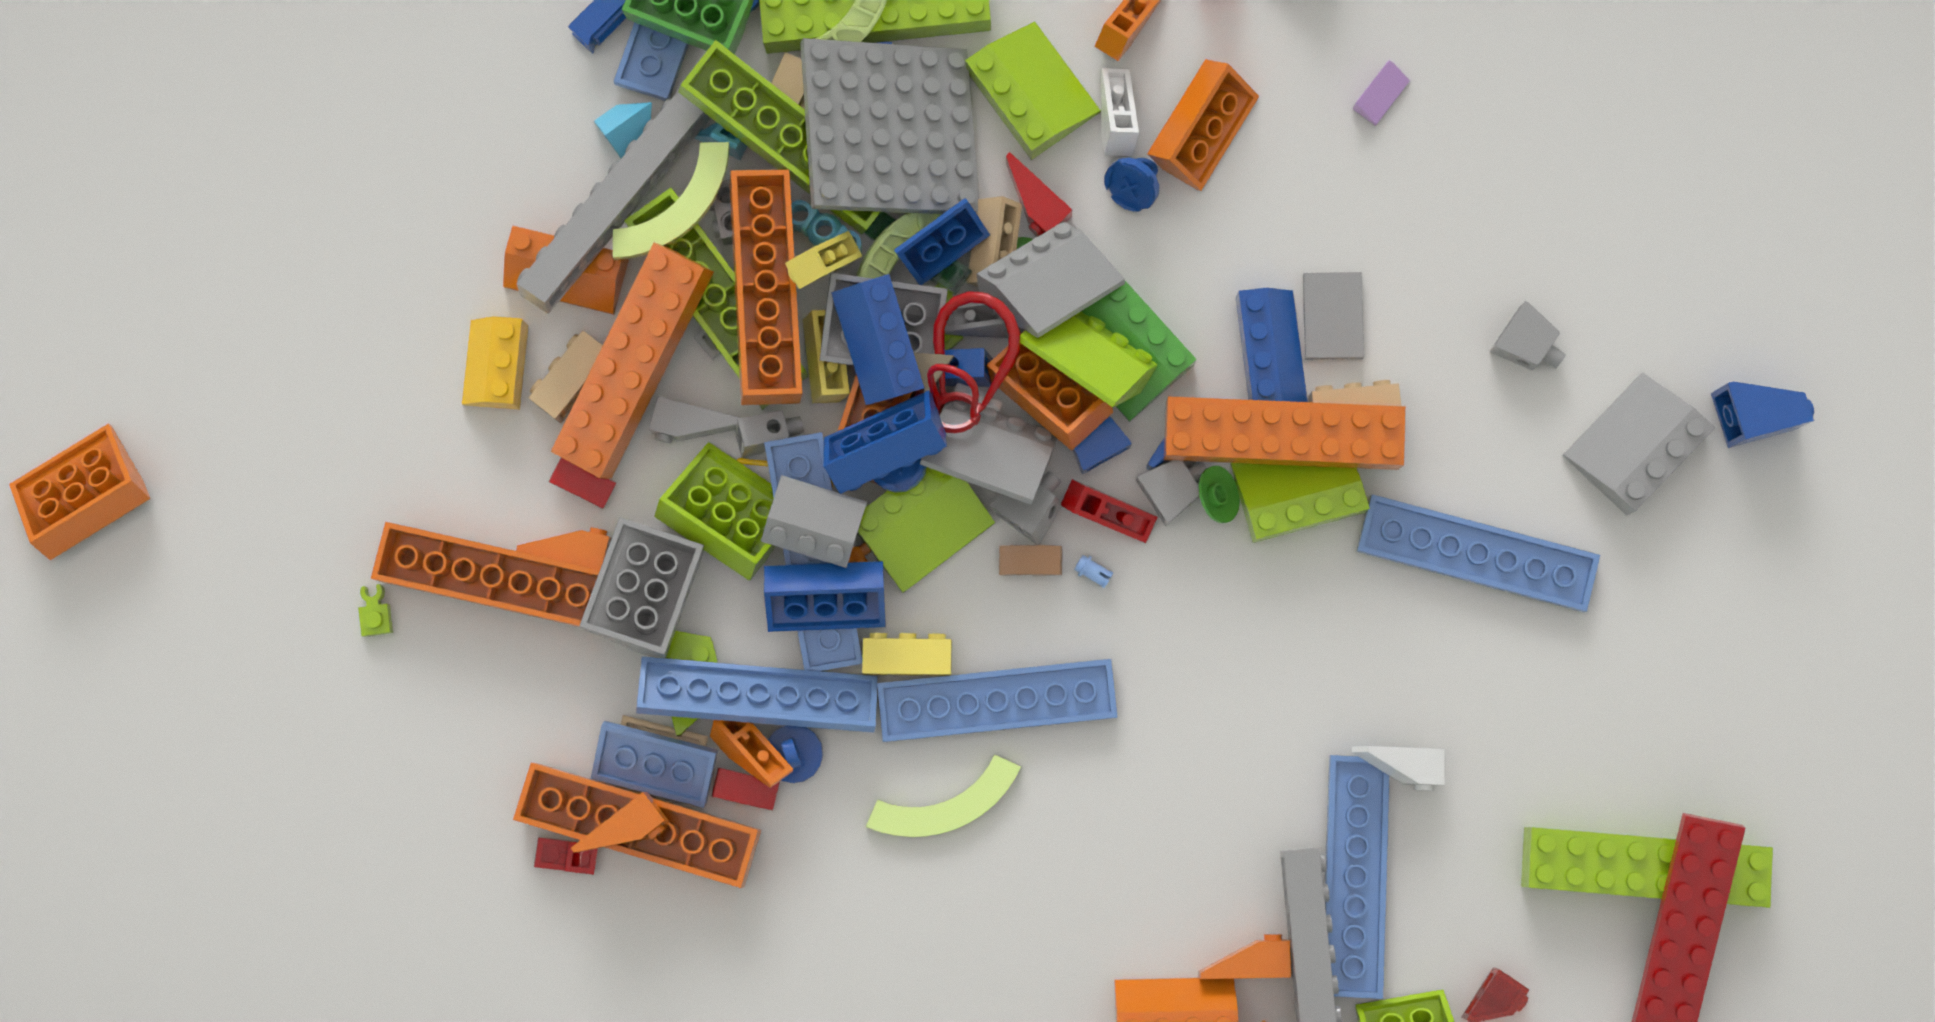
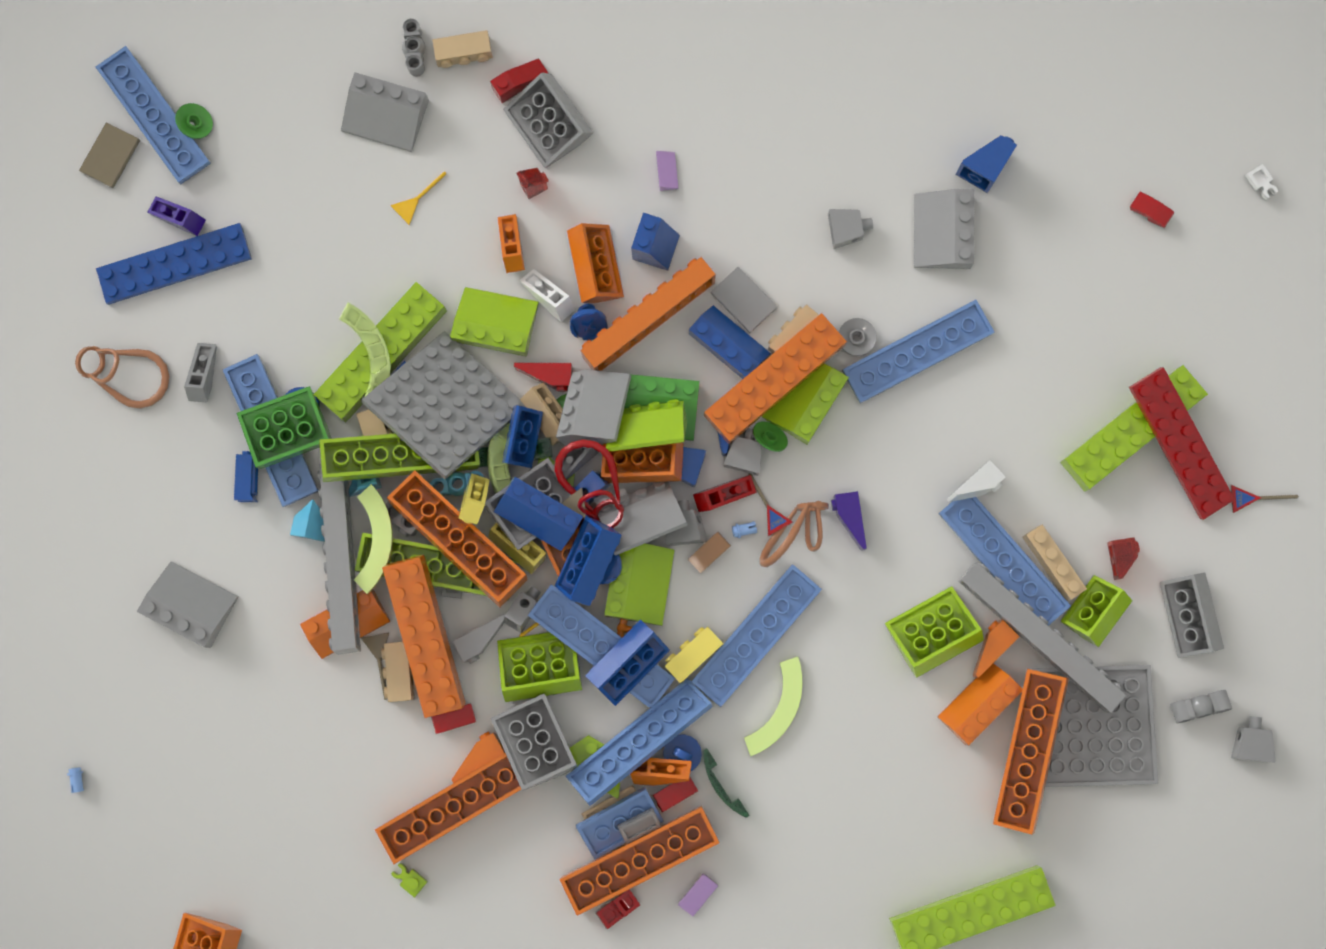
camera: 45 degrees left, 0 degrees up
(128, 176) = (76, 779): none -> light blue pin
(415, 97) = (188, 604): none -> light grey slope
(495, 362) = (353, 700): yellow slope -> none
(573, 323) = (375, 644): none -> dark tan piece
(631, 823) = (638, 861): orange slope -> none
(666, 923) = (697, 894): none -> lavender slope
(672, 787) = (639, 825): none -> light grey tile
(800, 866) = (735, 805): none -> clear green slope
(813, 521) = (589, 631): light grey slope -> none
(1088, 625) = (805, 508): none -> nougat animal
(1138, 593) = (775, 520): none -> piece
(1200, 882) = (934, 631): none -> lime slope
(1209, 234) = (648, 315): none -> orange brick
(1227, 662) = (849, 513): none -> dark purple slope
(1291, 159) = (654, 242): none -> blue slope
(1409, 933) = (1054, 562): none -> tan brick
(1437, 470) = (862, 329): none -> light grey dish
(1906, 640) = (1152, 209): none -> red slope

